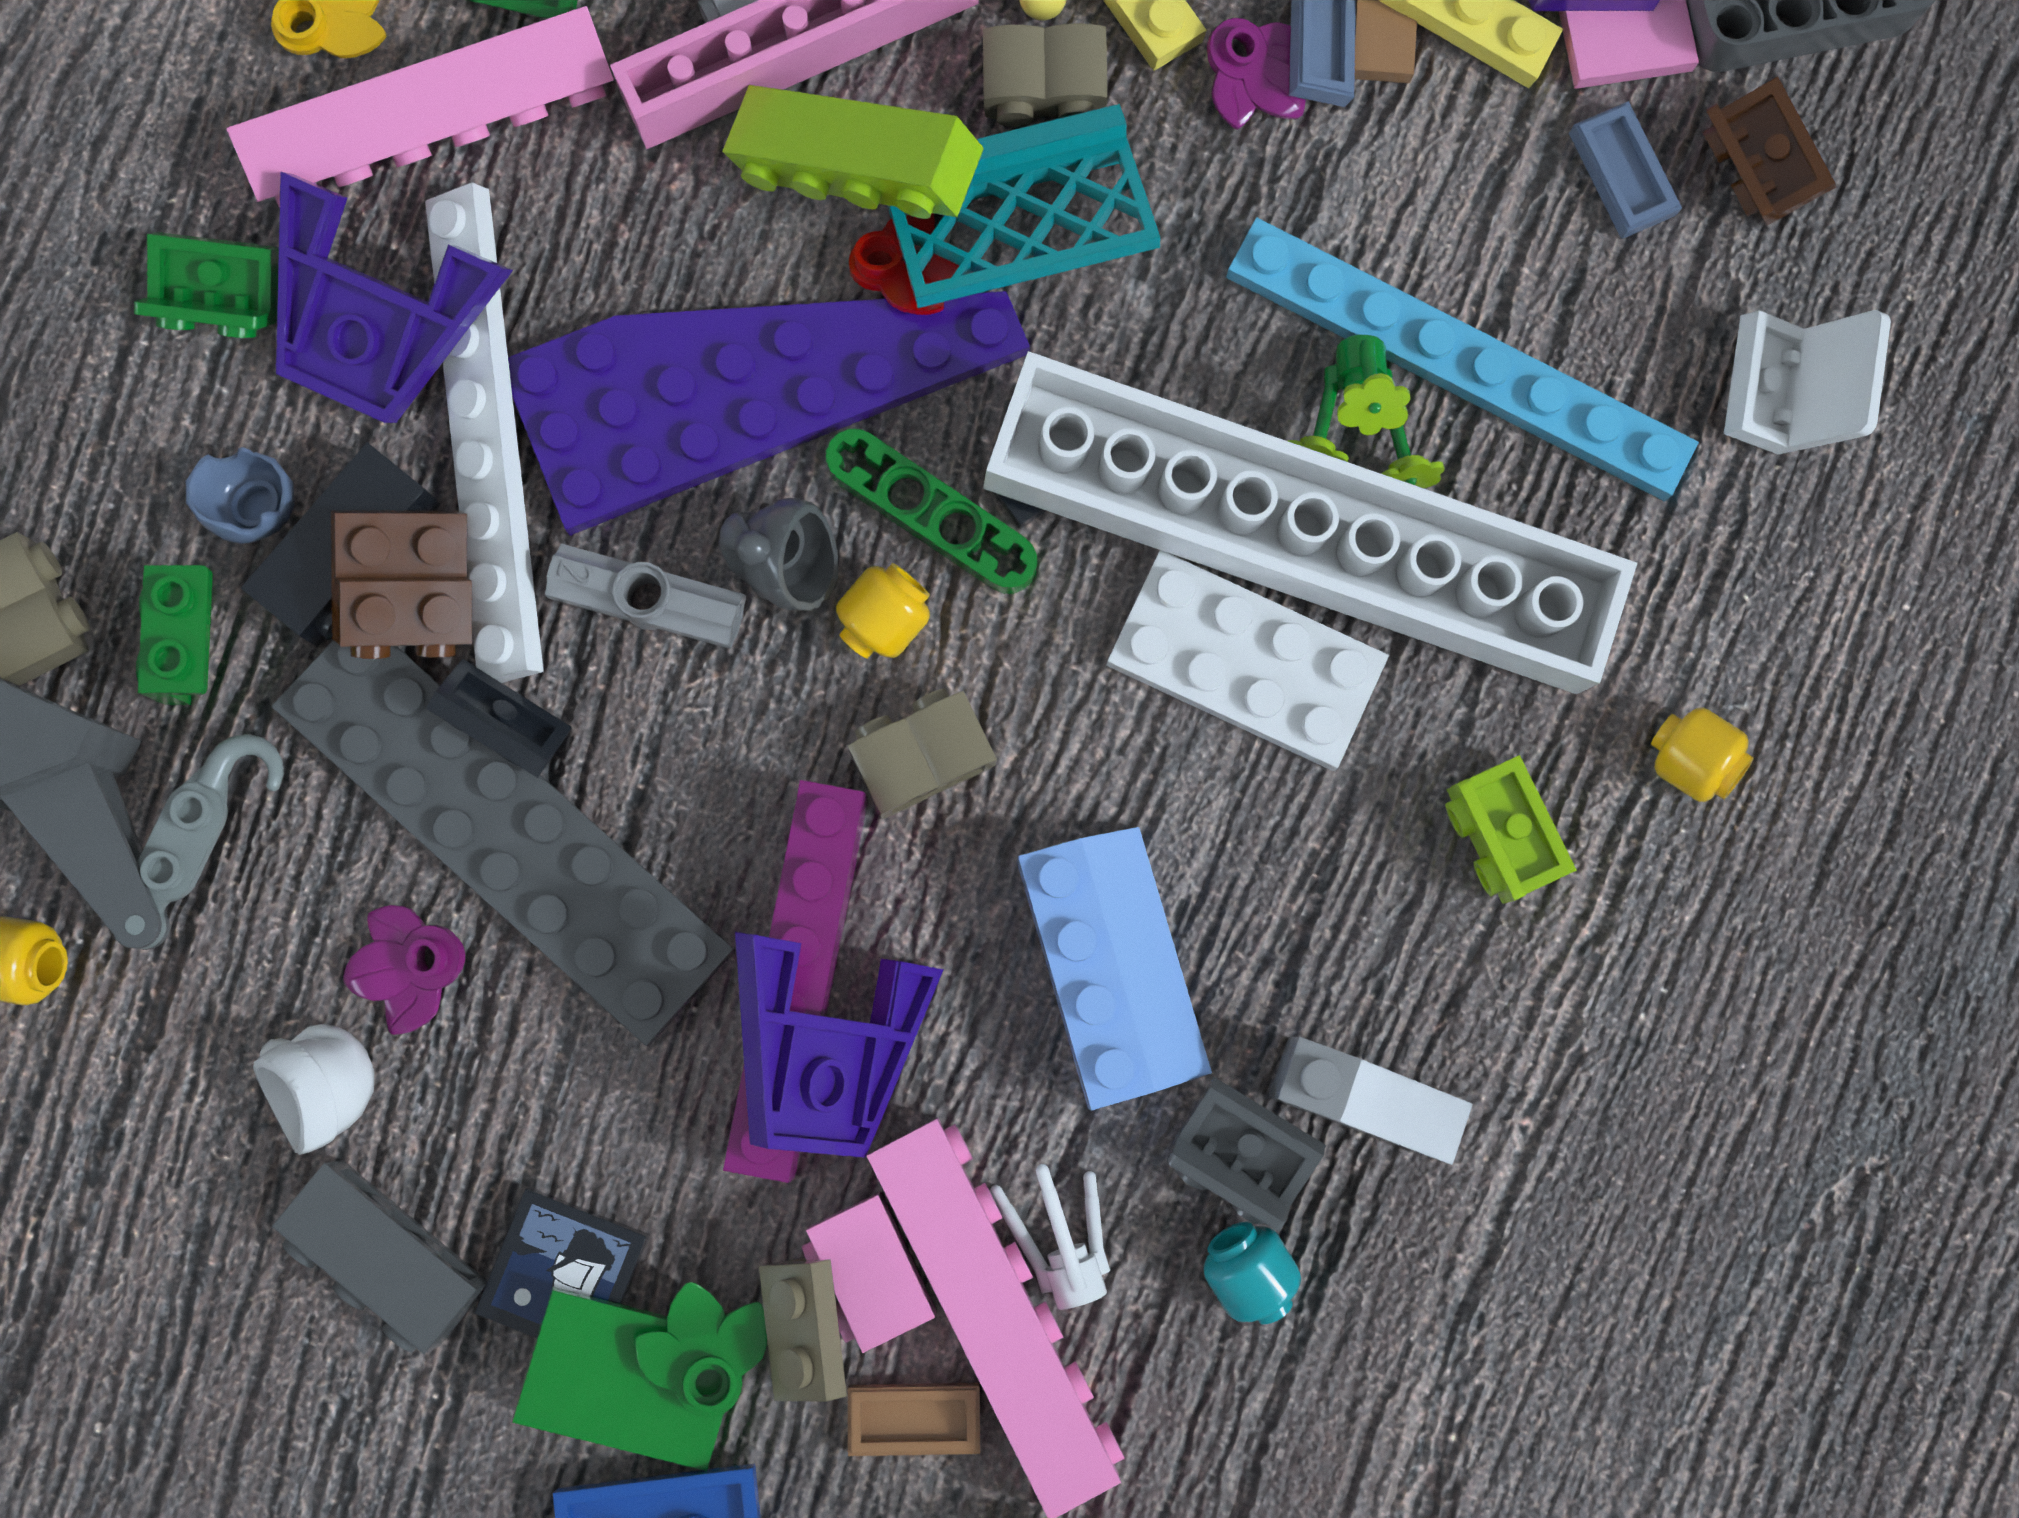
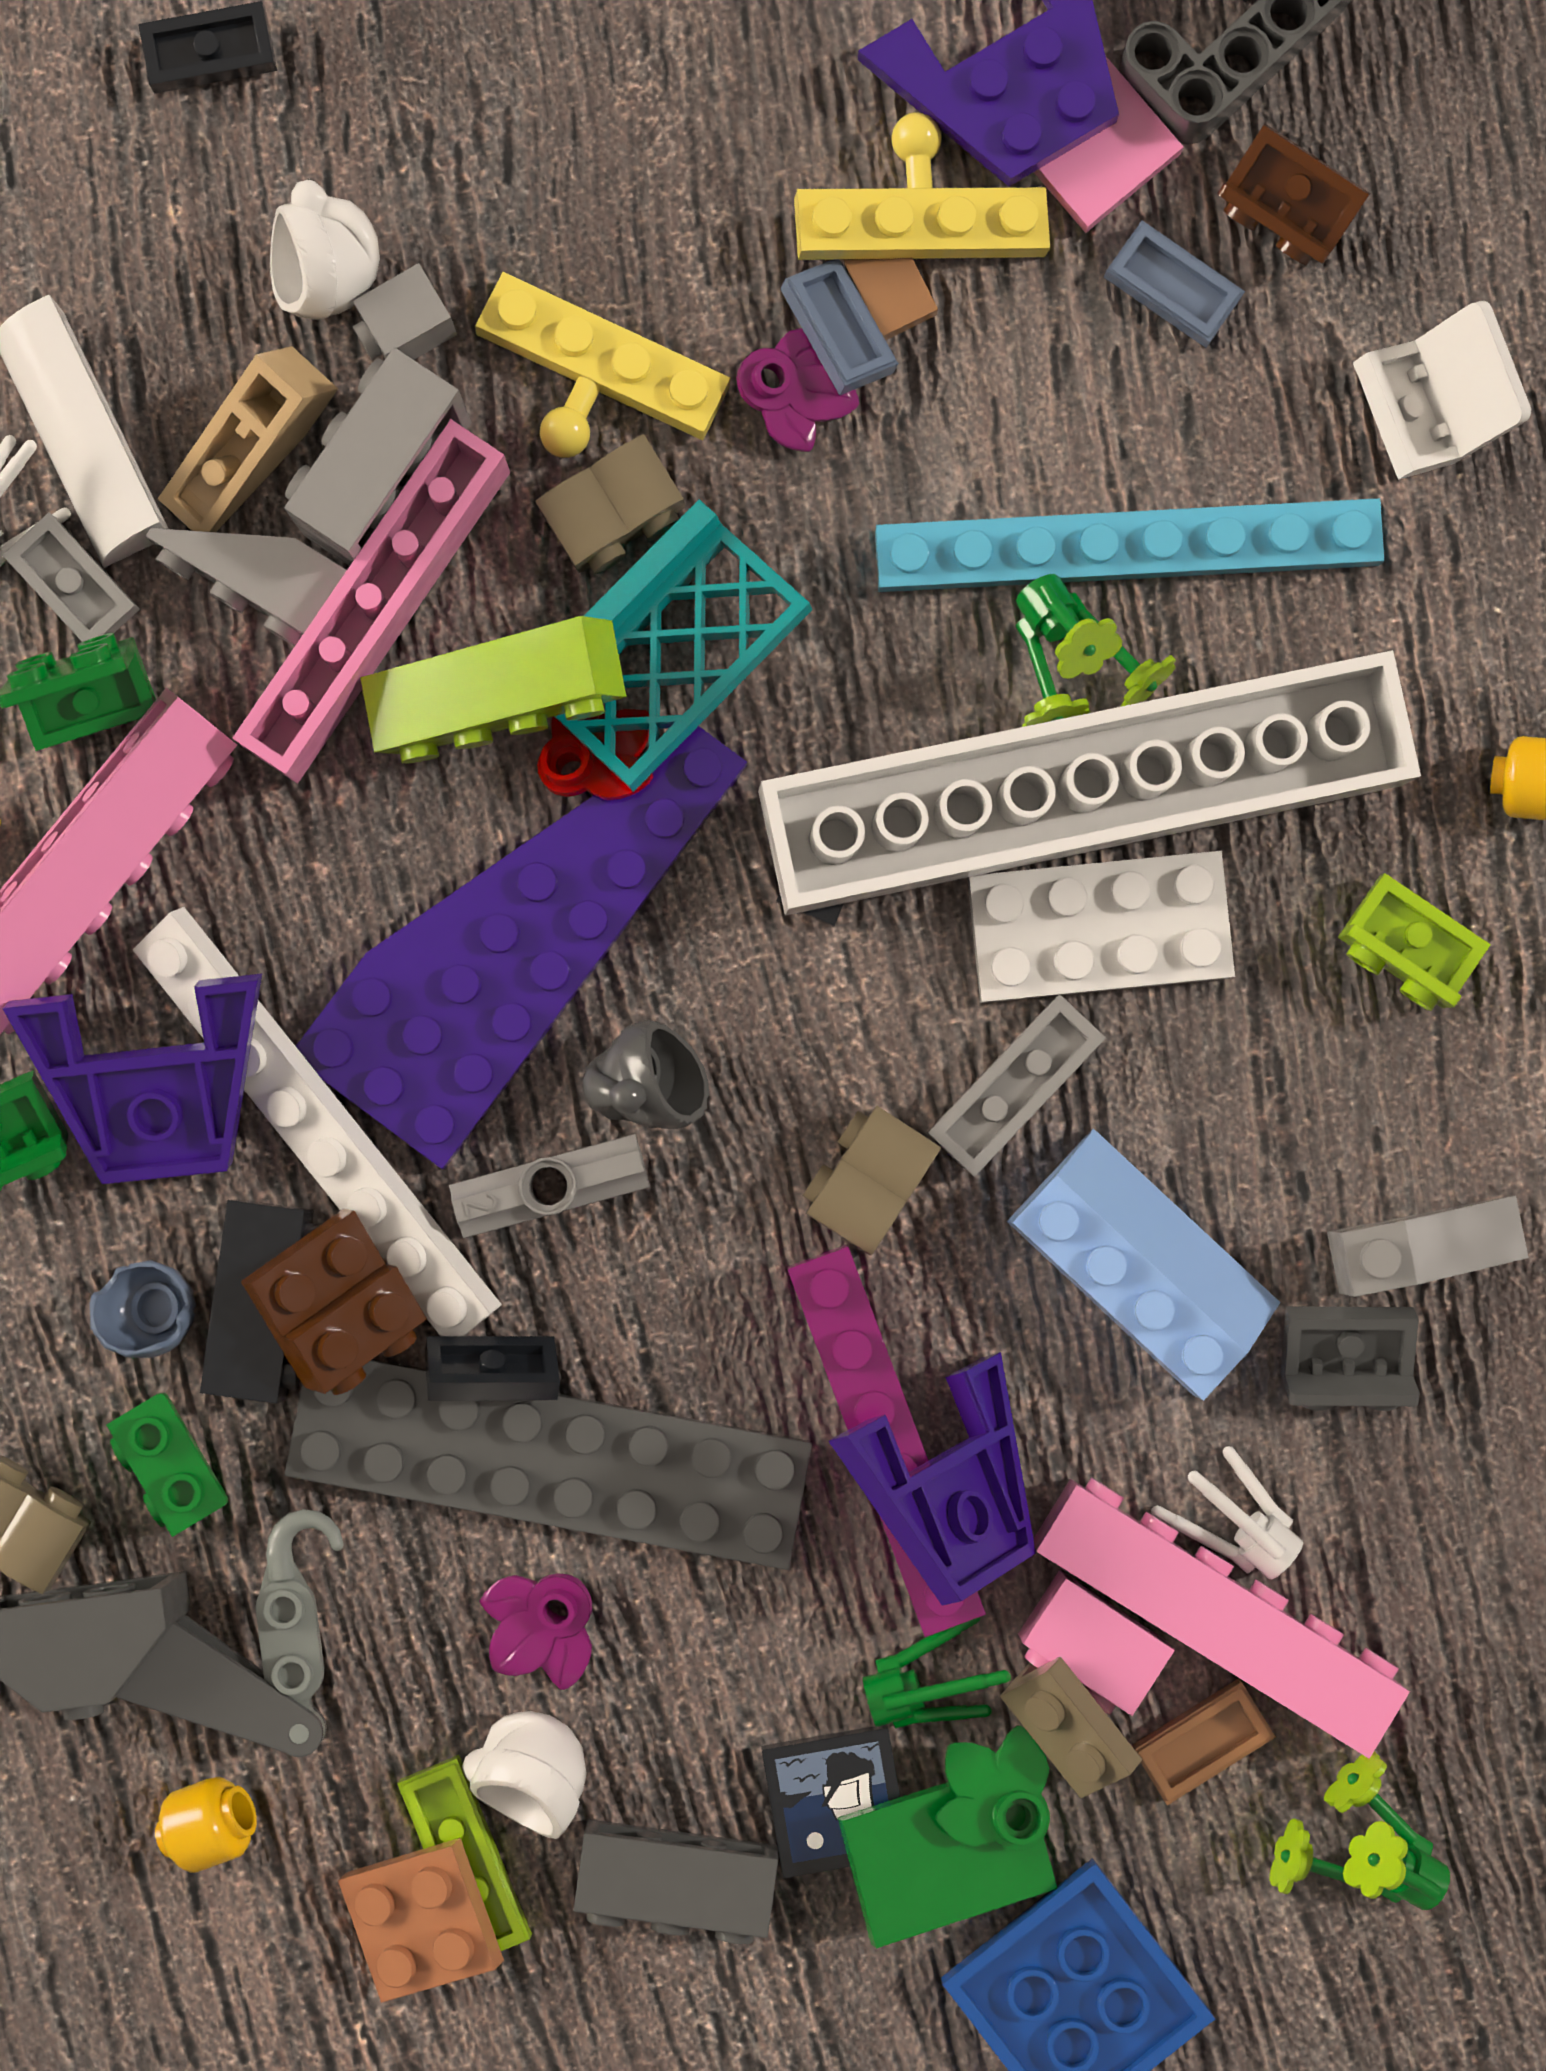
camera: 30 degrees left, 5 degrees up
(141, 1157) = (421, 1920): none -> nougat plate
(213, 1130) = (448, 1810): none -> lime tile
(672, 1212) = (897, 1695): none -> green plant
(883, 611) = (763, 1075): yellow head -> none
(936, 504) = (749, 951): green beam -> none
(1093, 748) = (1016, 1085): none -> light grey plate
(1252, 1273) = (1414, 1452): teal head -> none

